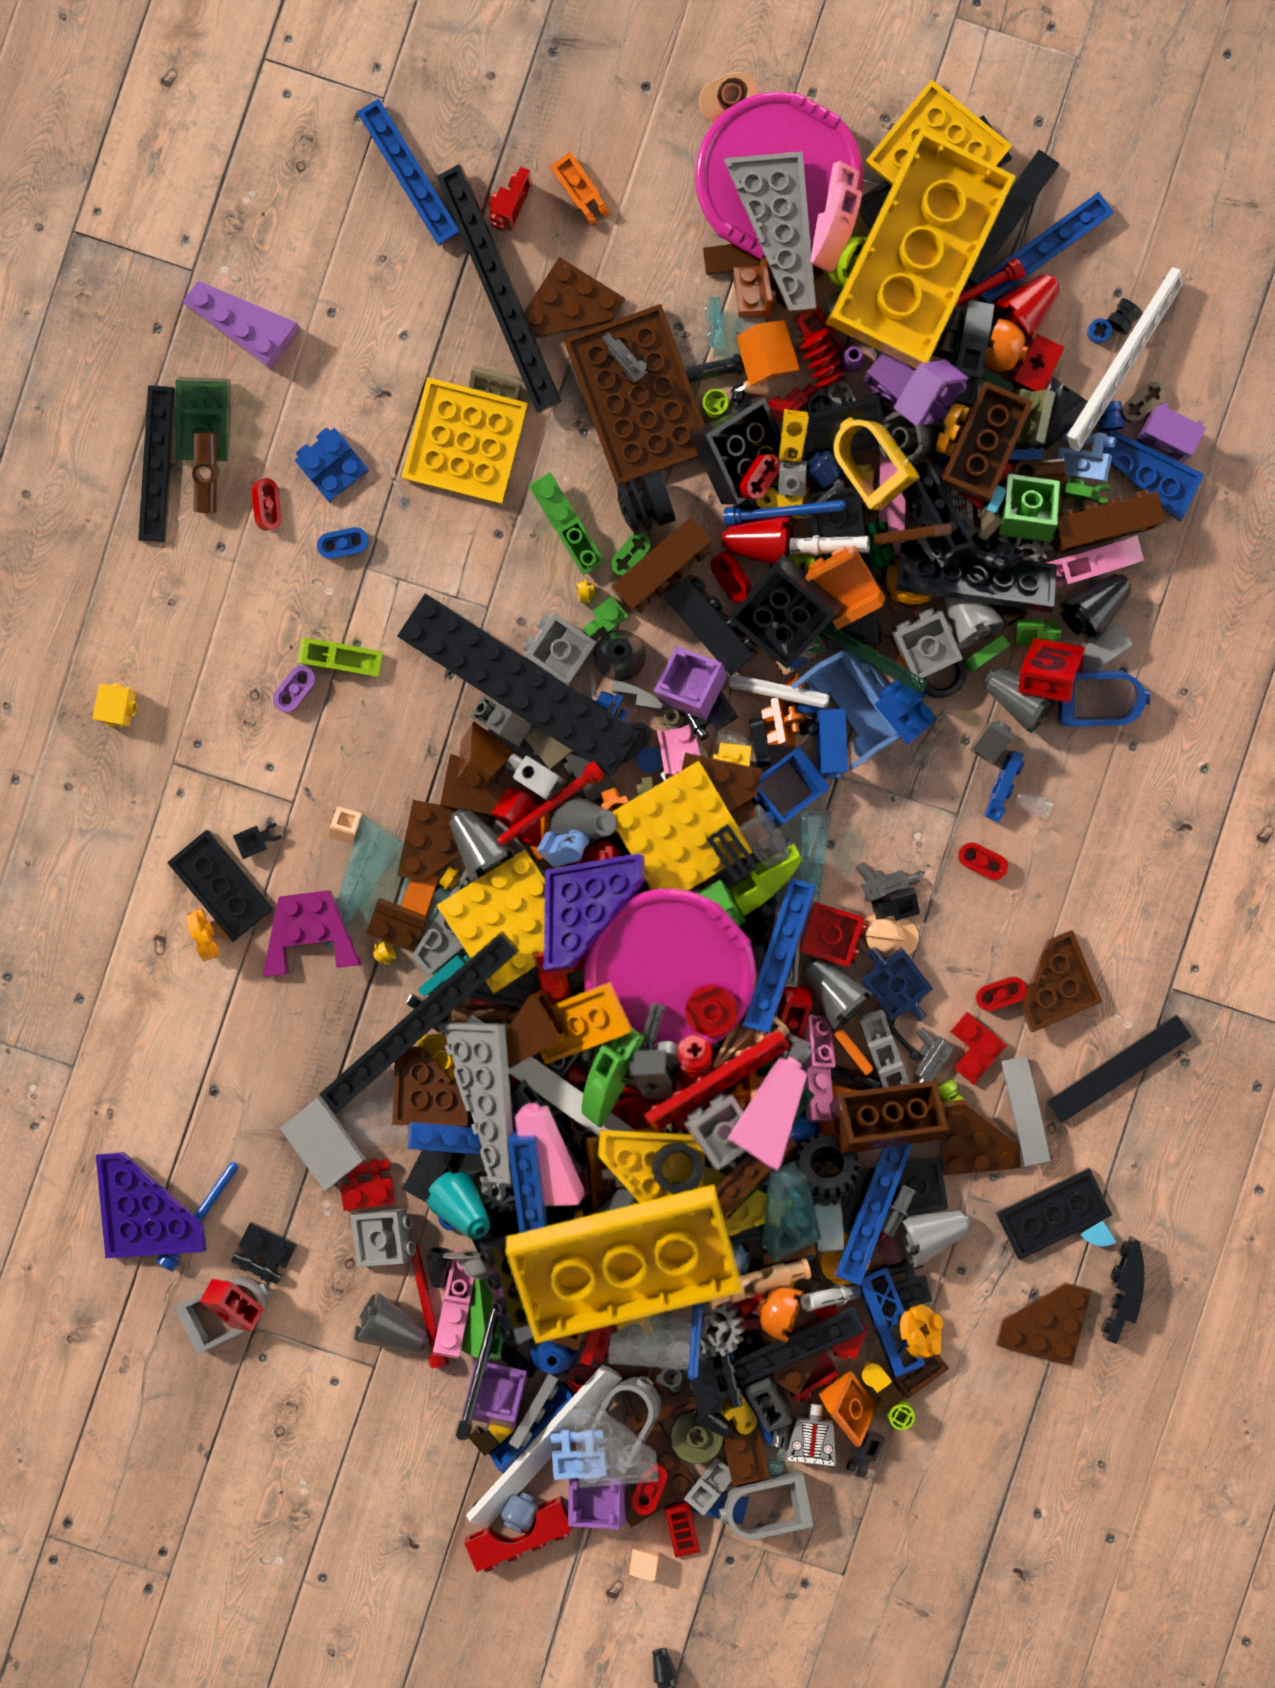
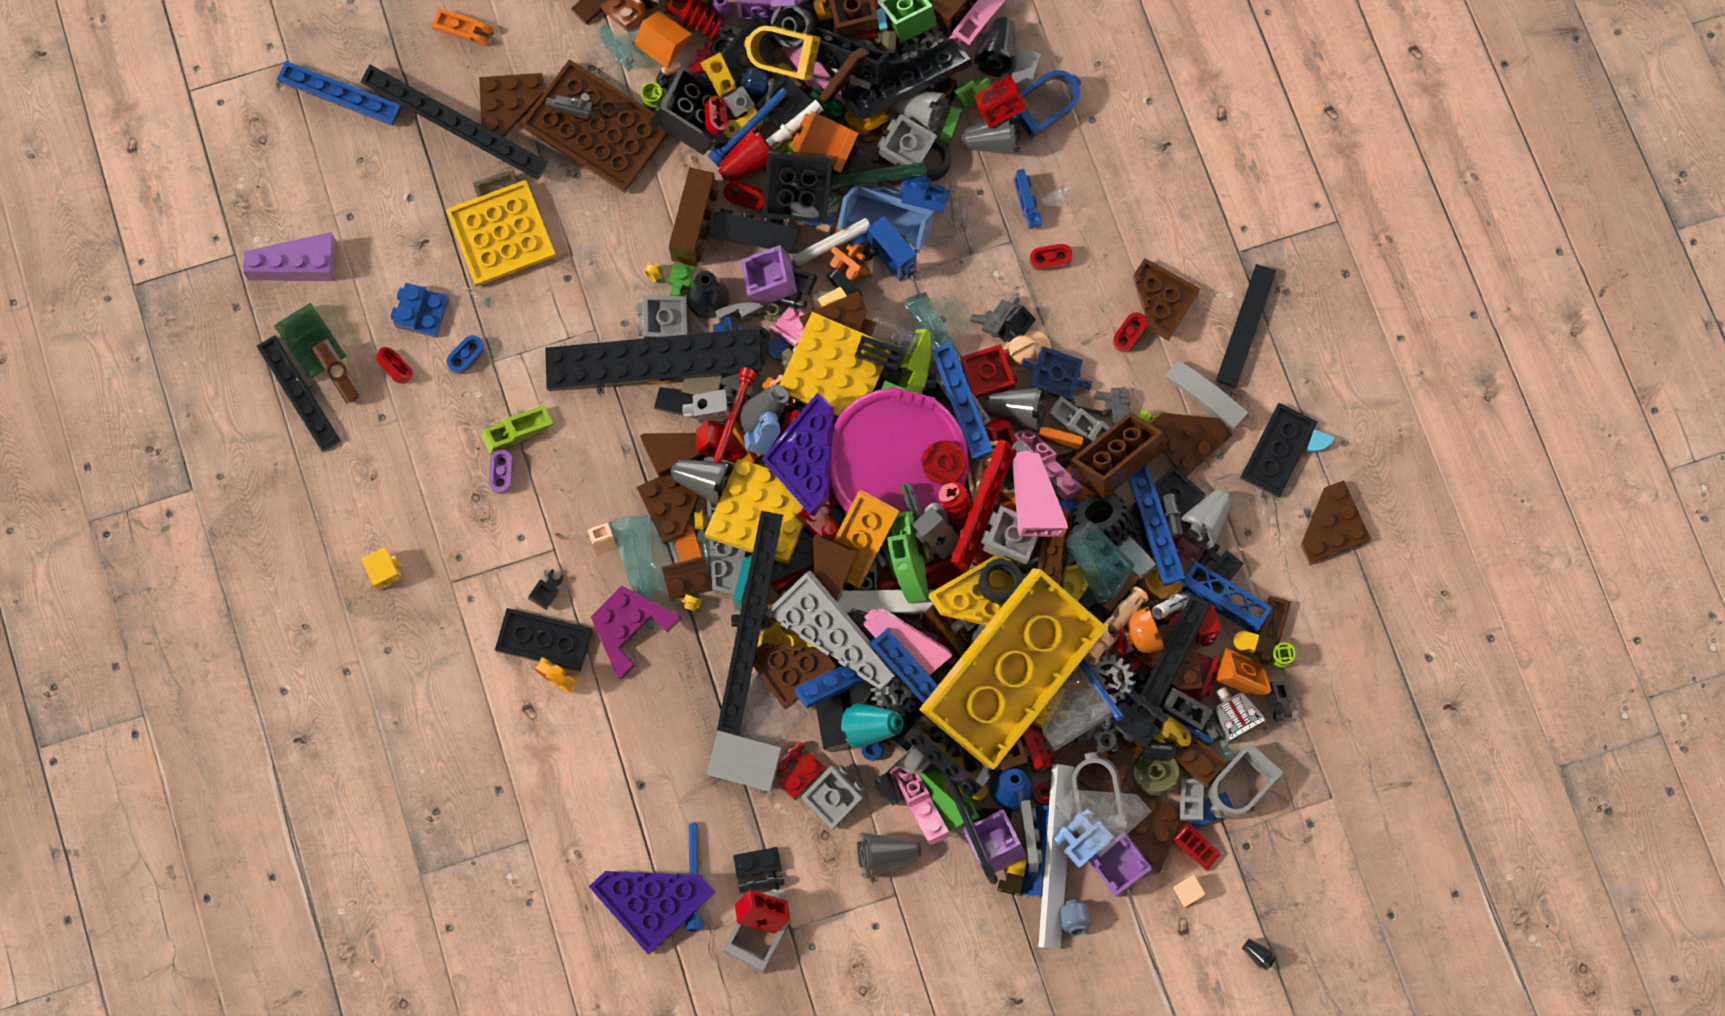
camera: 30 degrees left, 15 degrees down
(434, 1360) = (934, 851): red piece -> none
(481, 758) = (663, 421): reddish brown slope -> none
(489, 1548) = (1071, 959): red arch -> none
(501, 720) = (659, 389): dark grey slope -> none
(508, 203) = (419, 63): red plate -> none
(566, 523) = (607, 237): bright green slope -> none
(626, 550) = (661, 226): bright green beam -> none
(645, 502) = (652, 184): black wheel -> none
(650, 1489) = (1152, 831): red plate -> none
(694, 372) = (636, 74): black pin -> none
(808, 775) = (890, 282): blue window -> none
(923, 1343) = (1253, 586): light orange plate -> none
(982, 1044) = (1143, 374): red plate -> none
(992, 741) = (997, 175): dark grey slope -> none
(1130, 1281) = (1363, 454): black slope -> none

